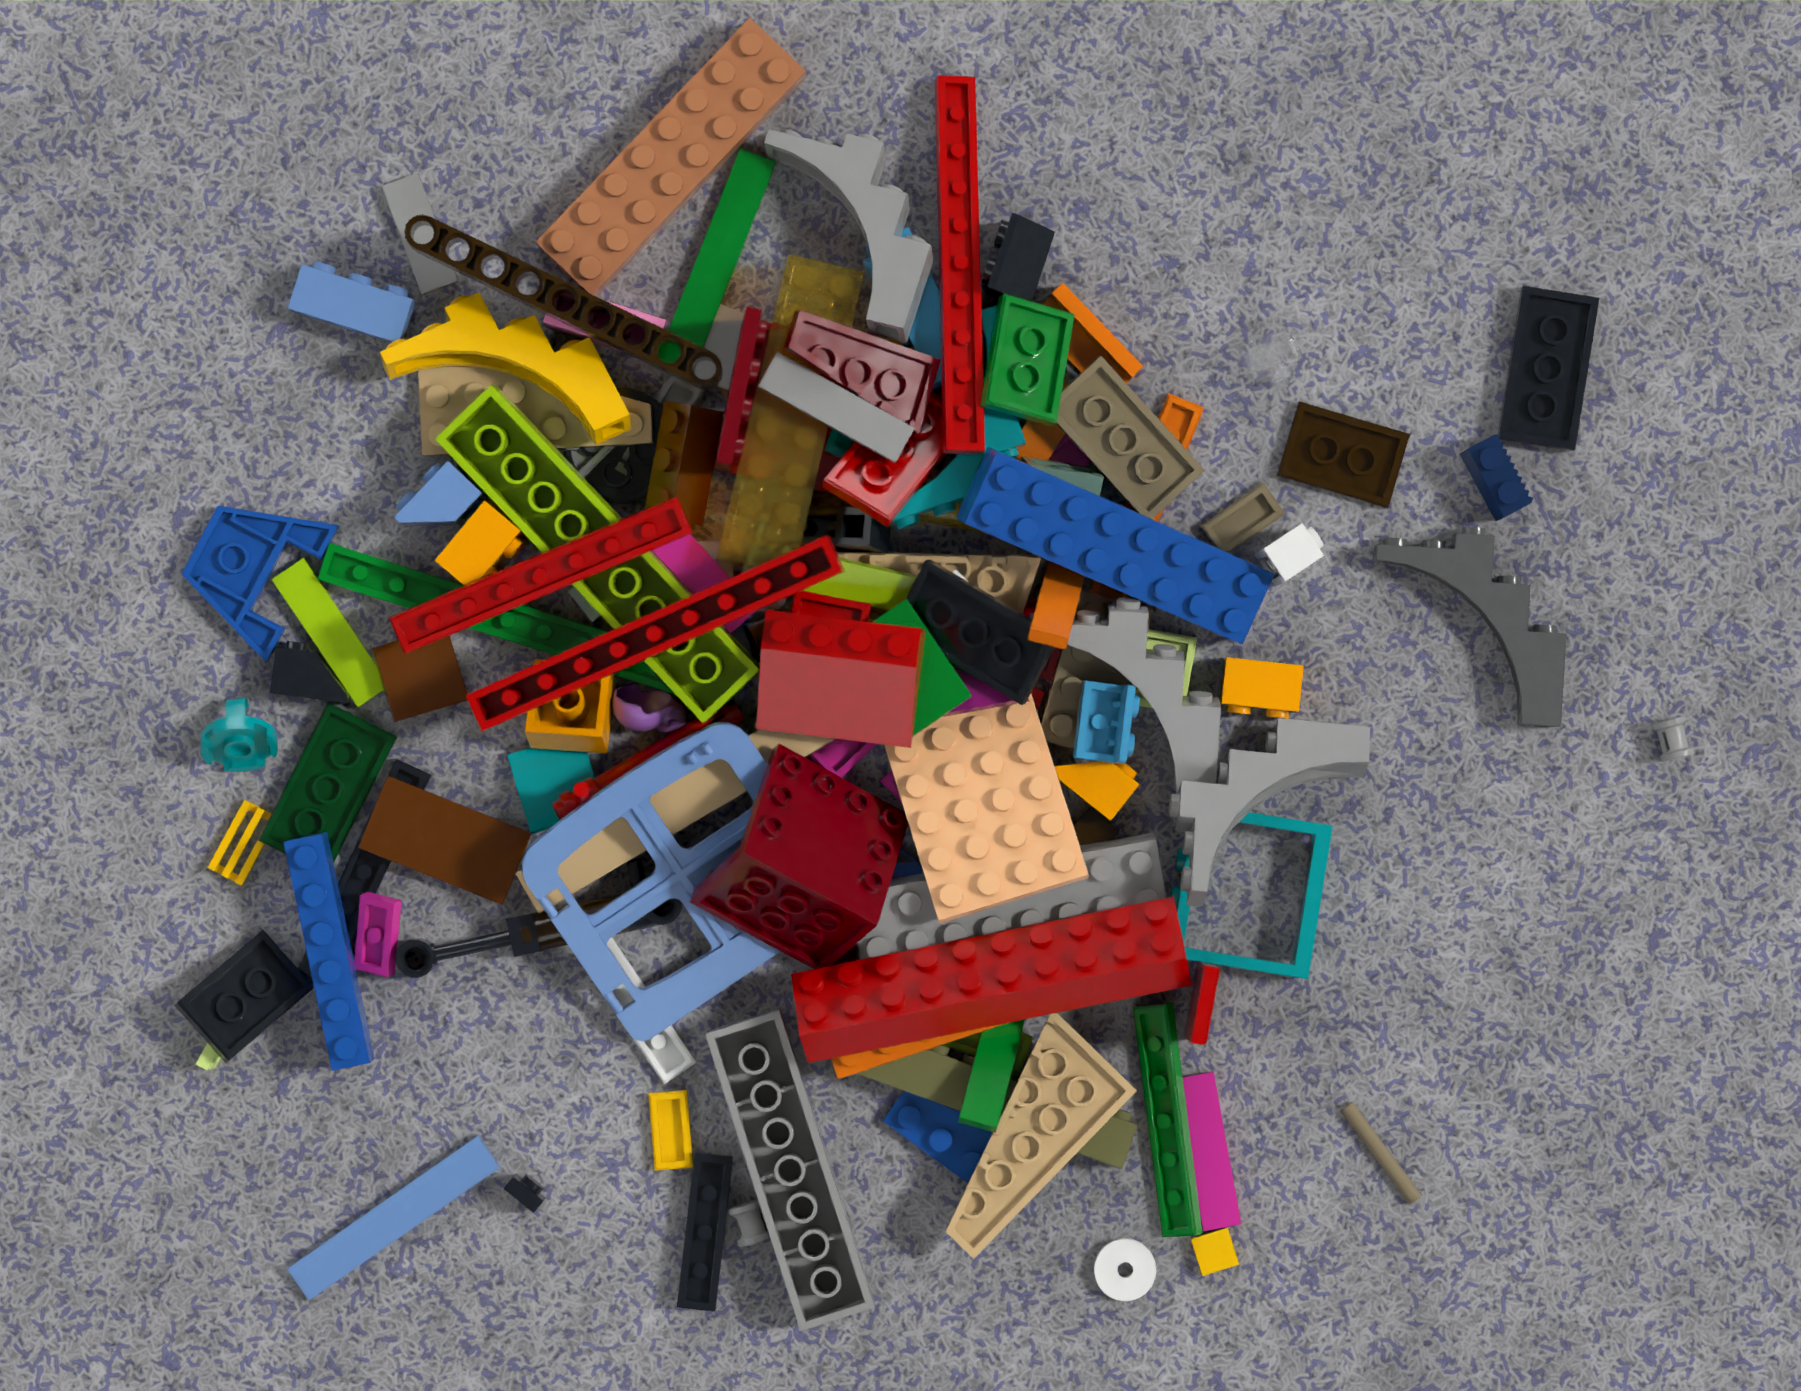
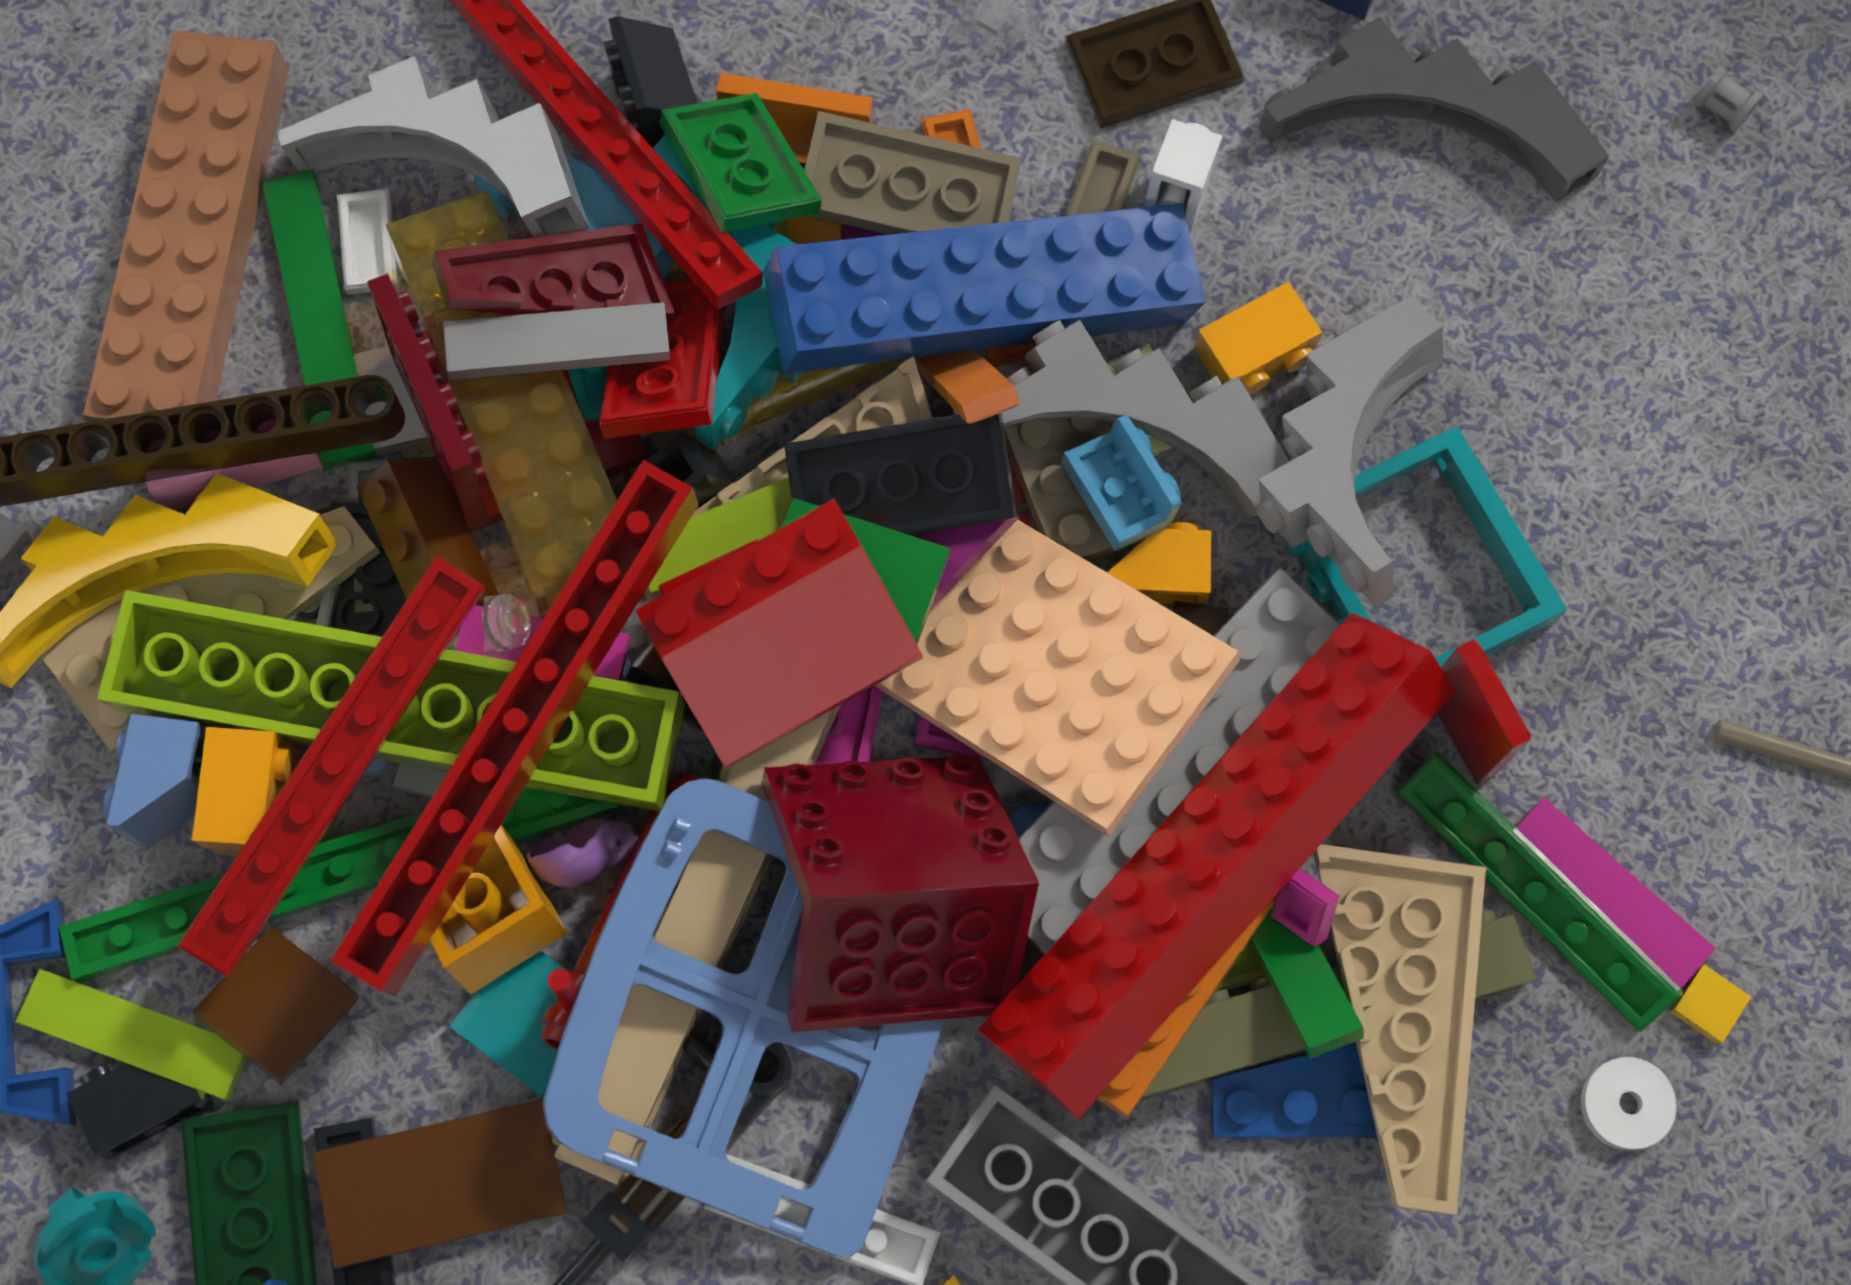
camera: 40 degrees left, 15 degrees down
(691, 554) = (504, 624): none -> clear plate
(778, 232) = (366, 239): none -> white tile
(1020, 1040) = (1306, 907): none -> dark pink tile

